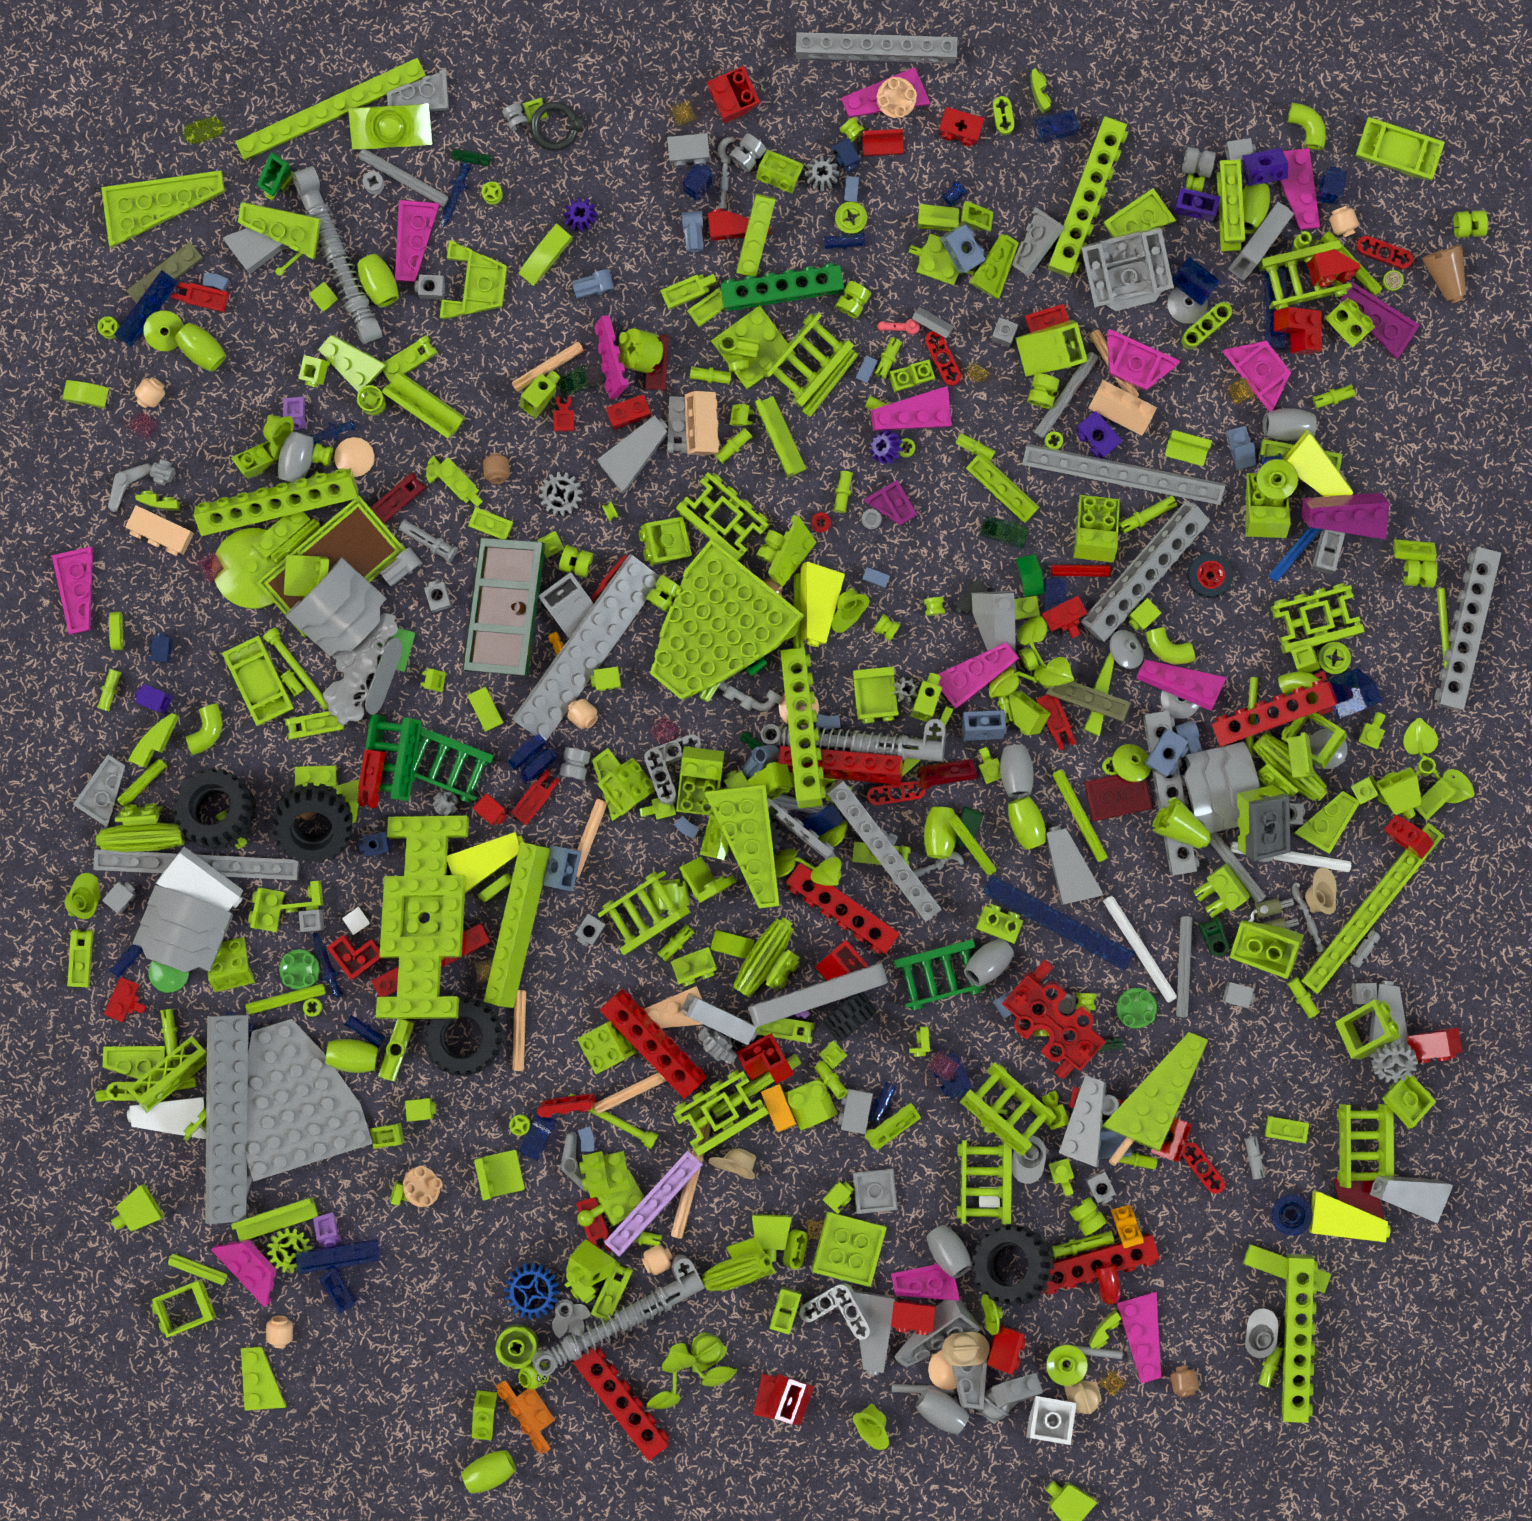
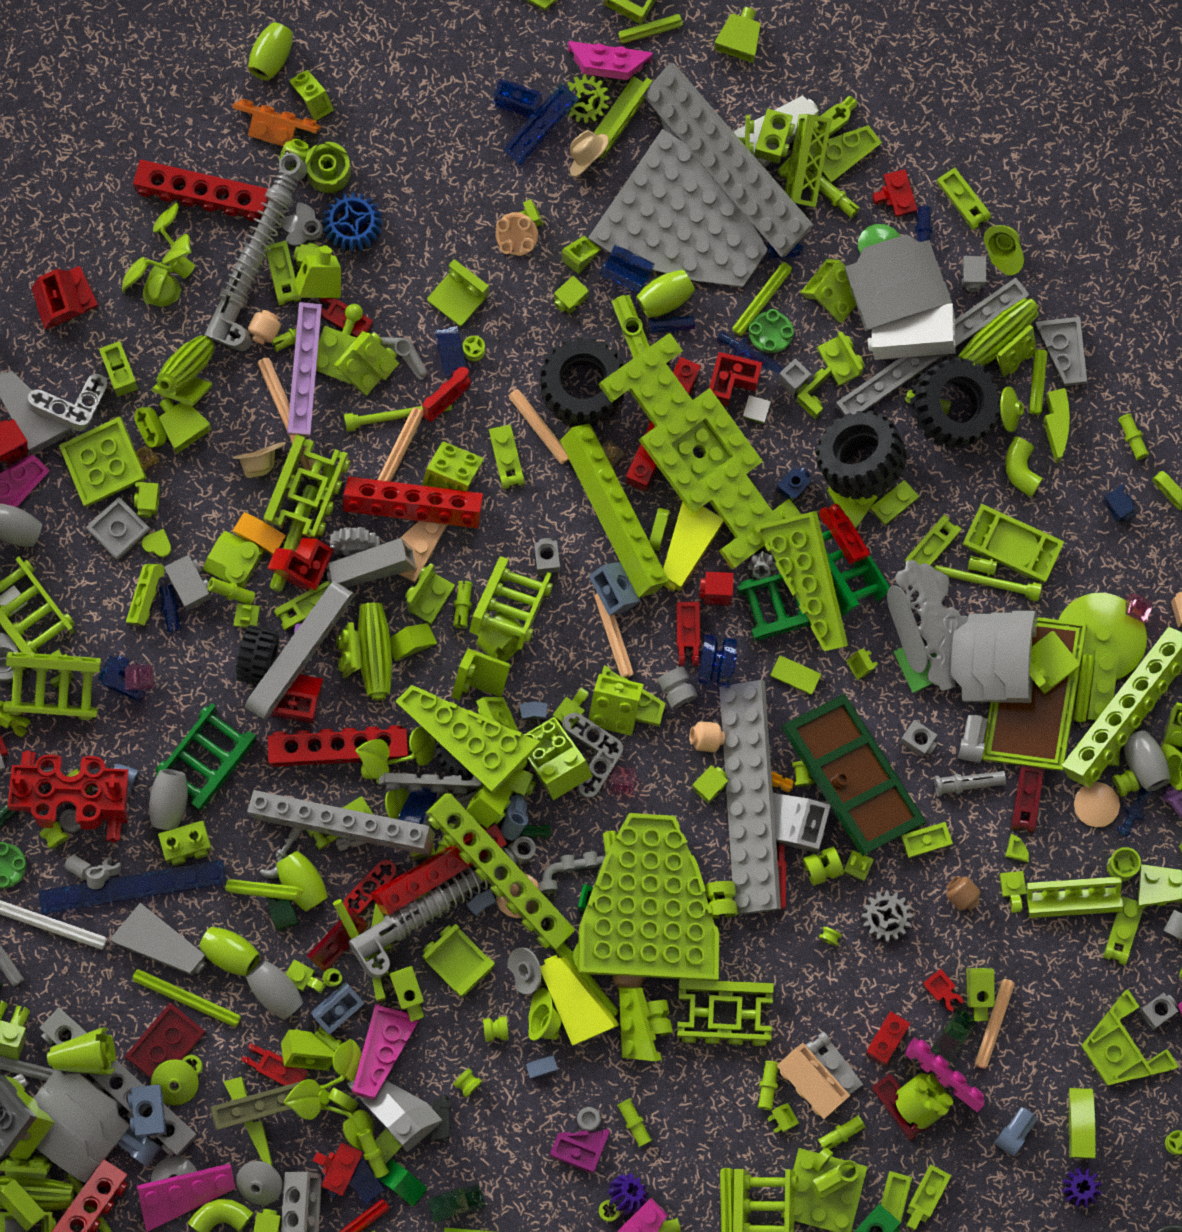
camera: 140 degrees right, 10 degrees down
(153, 698) = (1088, 455): dark purple brick -> none
(179, 775) = (1010, 409): none -> lime dish
(181, 1113) = (770, 135): none -> lime brick
(279, 1331) = (539, 30): light nougat head -> none
(318, 1007) = (727, 313): lime bush -> none
(321, 1208) = (585, 150): none -> tan piece
(326, 1230) = (563, 137): medium lavender bracket -> none
(363, 1096) = (627, 268): none -> clear blue panel
(419, 773) = (805, 568): none -> lime wing
(458, 447) = (1013, 886): none -> lime plate
(458, 482) = (986, 854): lime hinge -> none
(539, 635) = (803, 777): none -> lime bush
(559, 1027) = (506, 455): none -> lime plate
(587, 1139) = (406, 381): sand blue piece -> none
(631, 454) = (853, 1000): light grey slope -> none
(665, 541) = (758, 948): lime plate -> none
(780, 436) = (732, 1127): lime fence -> none
(820, 529) = (632, 1071): red plate -> none
(835, 650) = (525, 969): none -> light grey dish
(855, 1158) = (157, 543): none -> lime tile
(904, 695) = (440, 984): light grey gear -> none
(923, 1039) = (173, 683): lime bracket -> none
(931, 778) = (346, 920): none -> lime bar
(970, 754) = (326, 977): none -> lime pin
(1035, 607) = (372, 1153): none -> lime pin
(1079, 948) = (94, 875): none -> light grey bar

